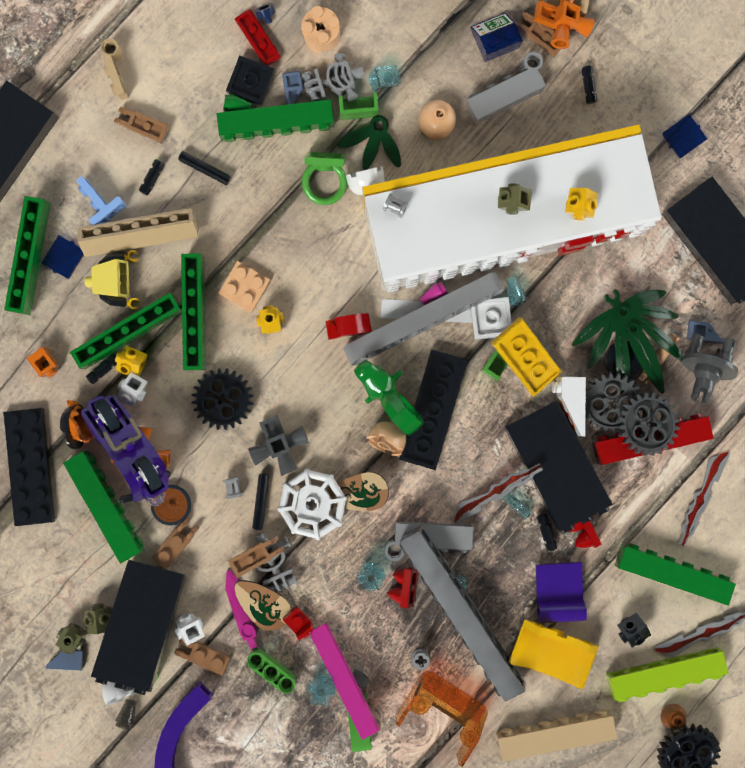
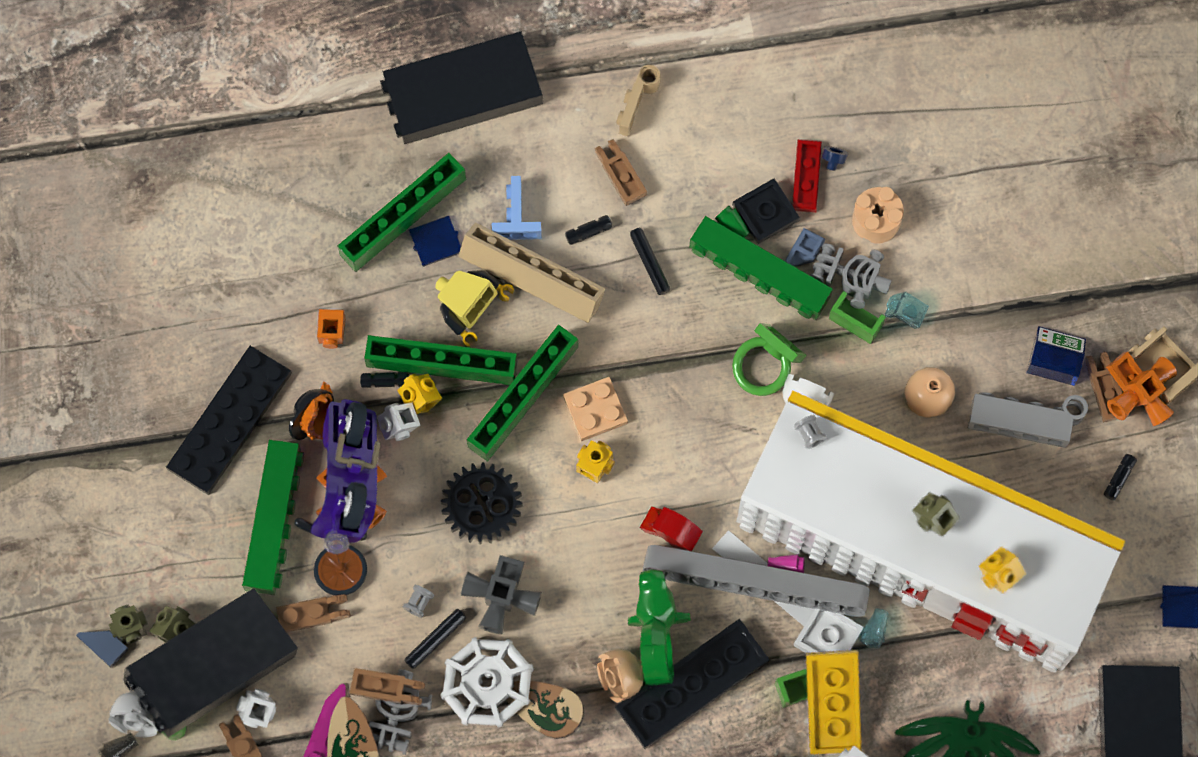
camera: 45 degrees right, 15 degrees down
(375, 136) = (840, 369): dark green plant -> none

